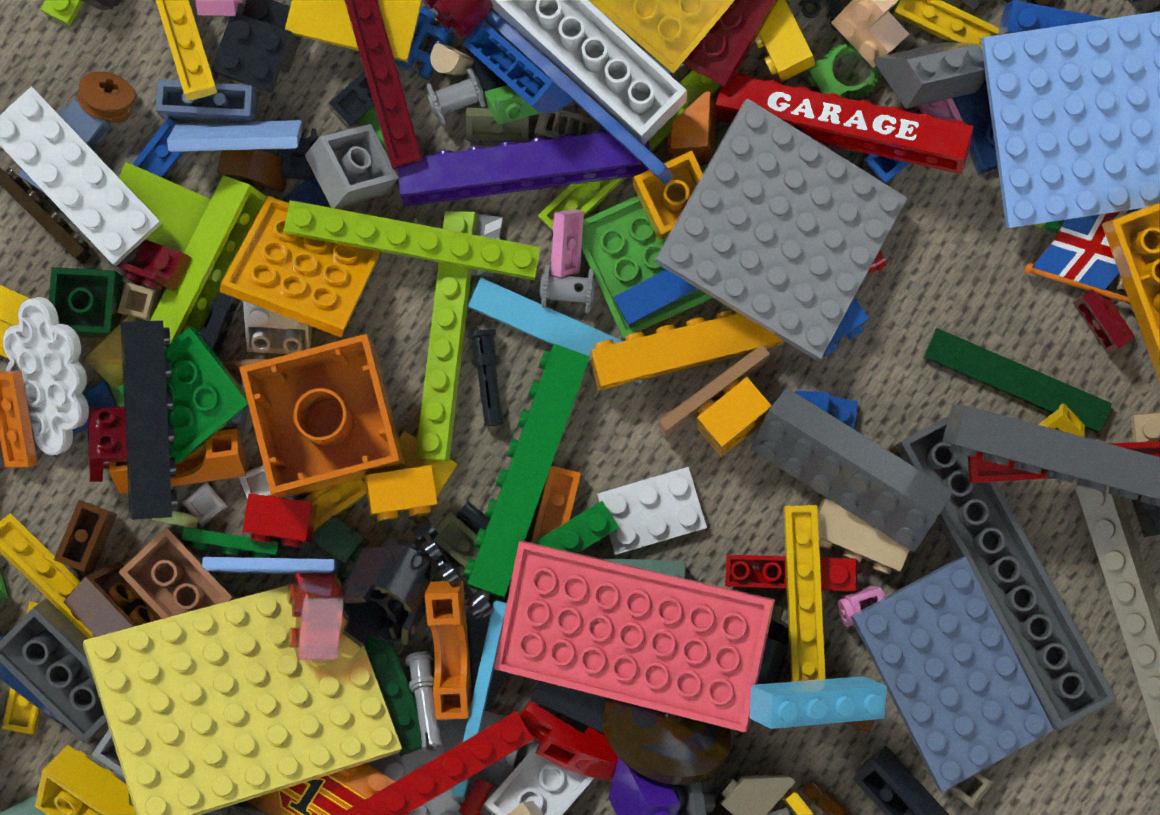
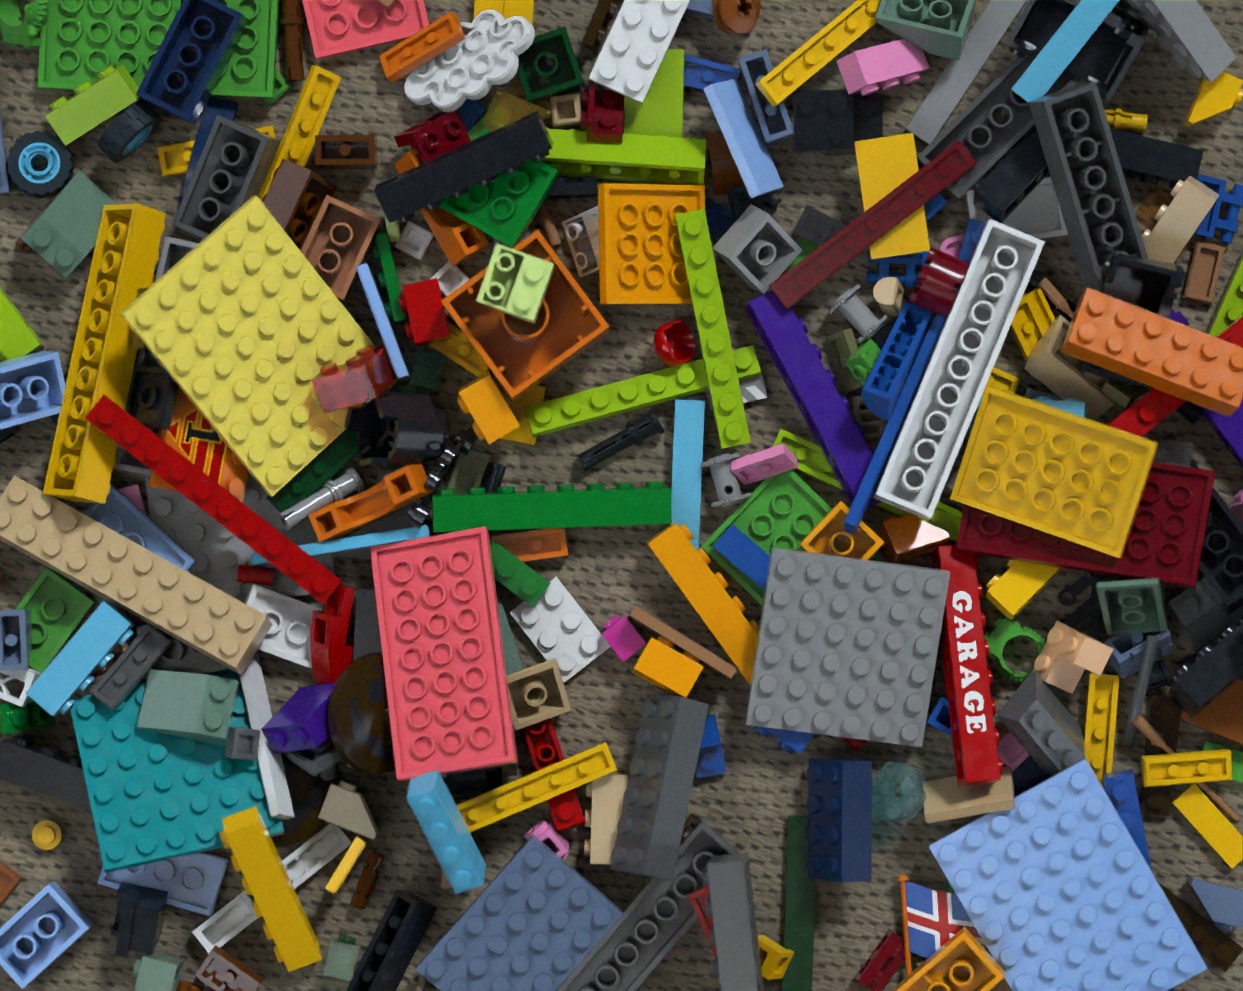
camera: 65 degrees right, 5 degrees up
(282, 408) = (515, 283): none -> yellowish green slope
(412, 286) = (674, 343): none -> red hair
(684, 450) = (622, 637): none -> dark pink brick
(709, 555) = (537, 694): none -> tan slope
(937, 256) = (884, 786): none -> clear light blue plate
(950, 304) = (839, 819): none -> dark blue brick
(971, 192) = (948, 802): none -> tan tile

